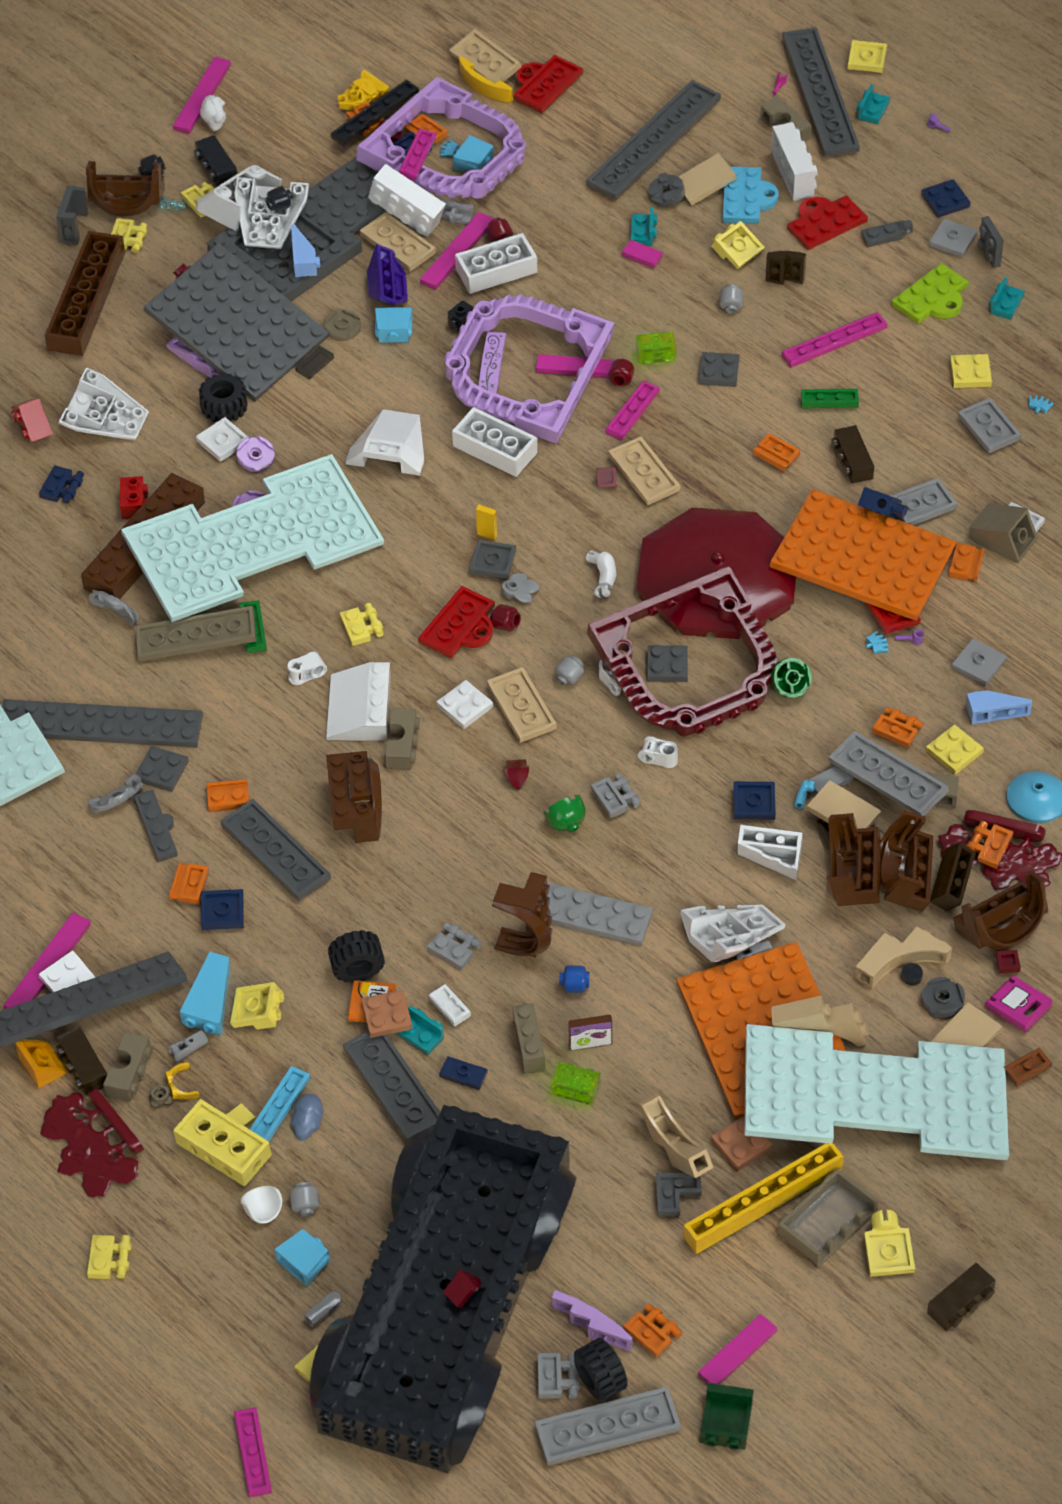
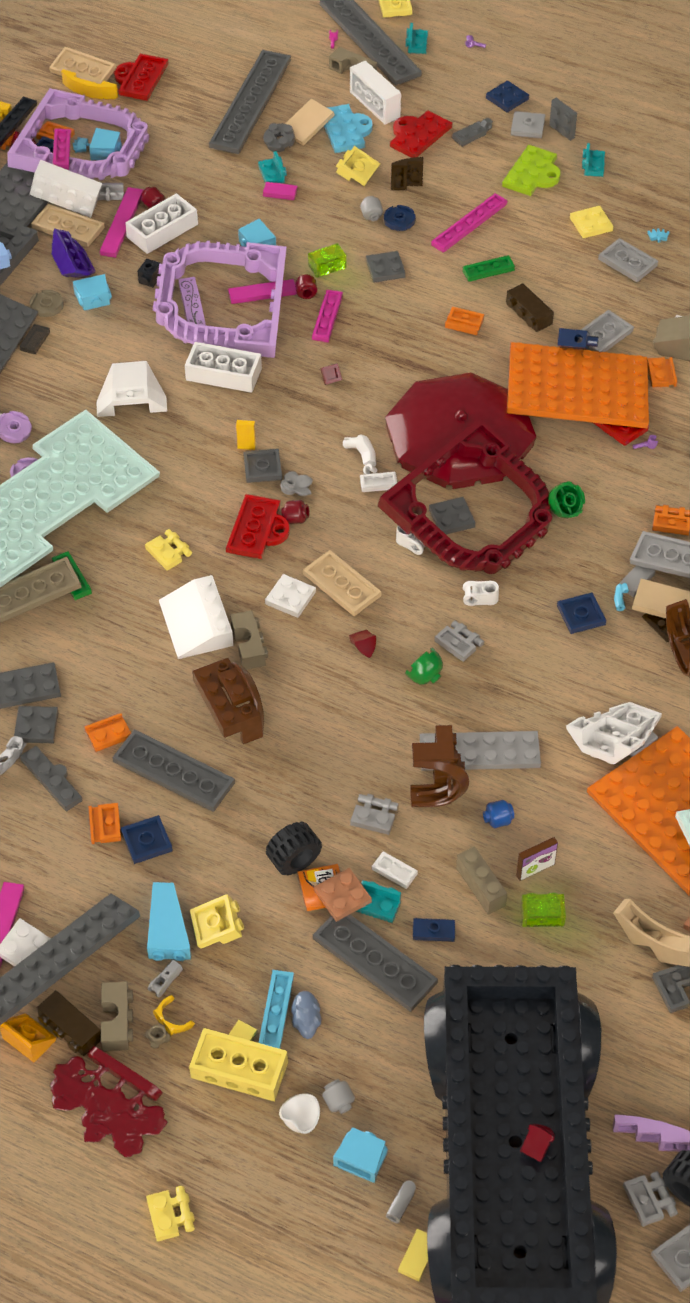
camera: 20 degrees left, 0 degrees up
(307, 667) = (135, 600): white piece -> none
(569, 670) = (371, 542): light grey head -> none
(592, 300) = (256, 233): none -> medium azure torso
(603, 606) = (377, 481): none -> white plate
(644, 470) = (360, 361): tan plate -> none
(758, 316) = (399, 218): none -> dark blue plate
(771, 848) = (619, 650): white wedge -> none
(877, 643) = (619, 455): medium azure piece -> none

